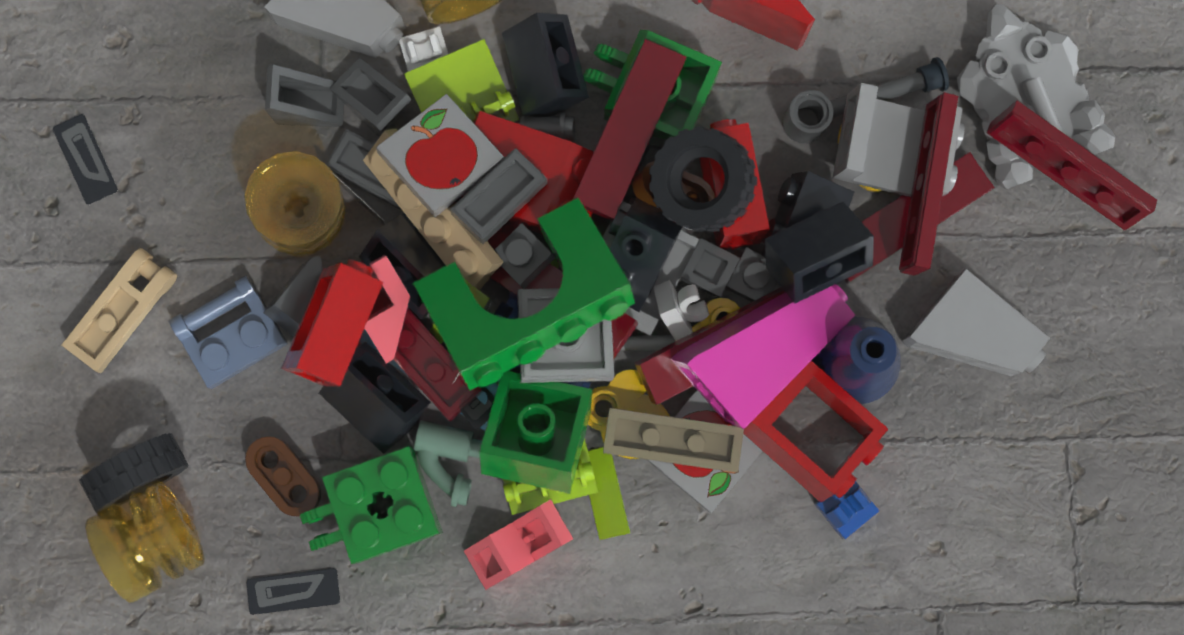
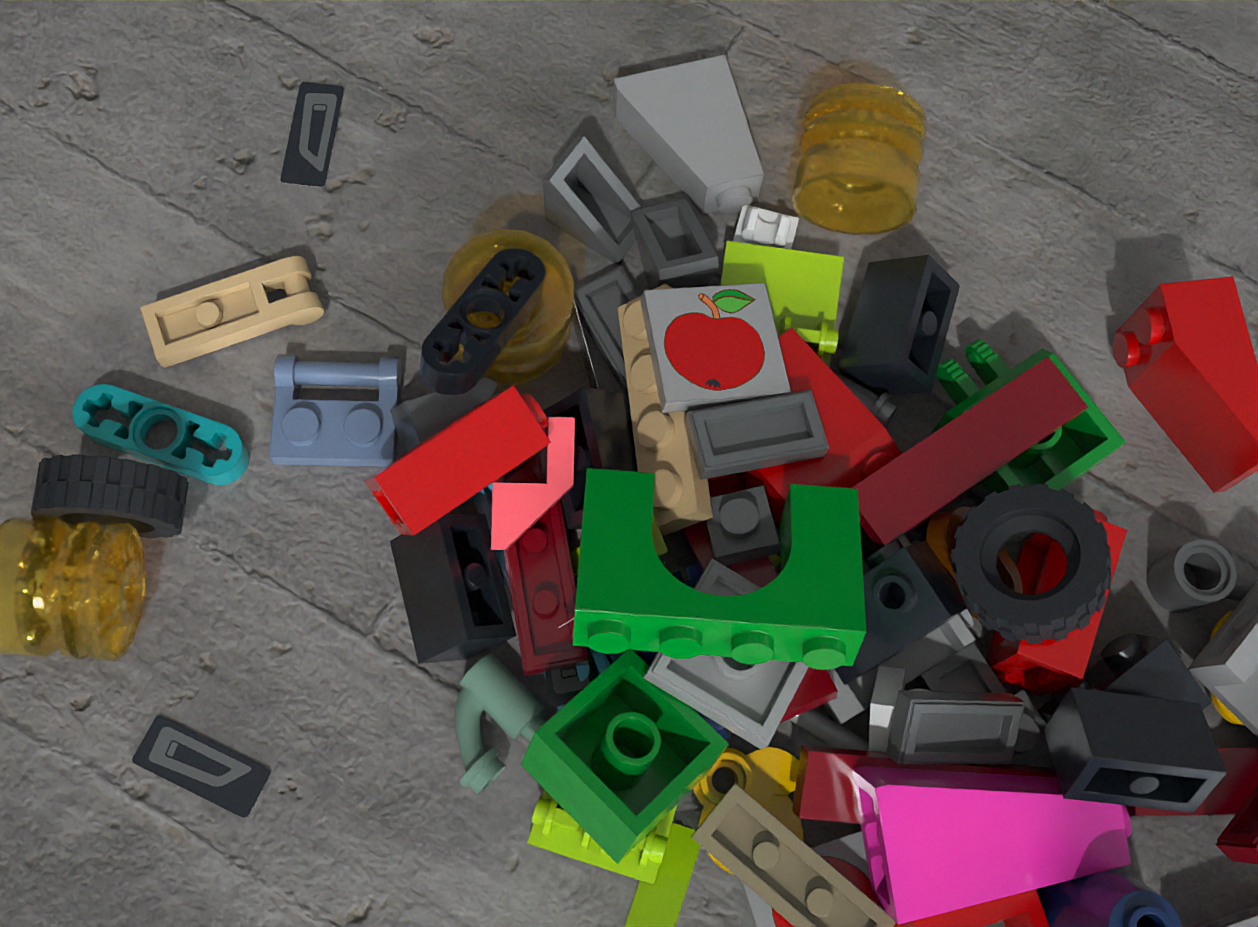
camera: 30 degrees right, 10 degrees down
(101, 434) = (146, 412): none -> teal beam
(284, 477) = (282, 619): reddish brown plate -> none
(302, 243) = (482, 344): none -> black beam
(352, 499) = (340, 701): green hinge -> none
(518, 544) = (511, 888): coral slope -> none
(715, 298) = (954, 727): none -> dark grey tile

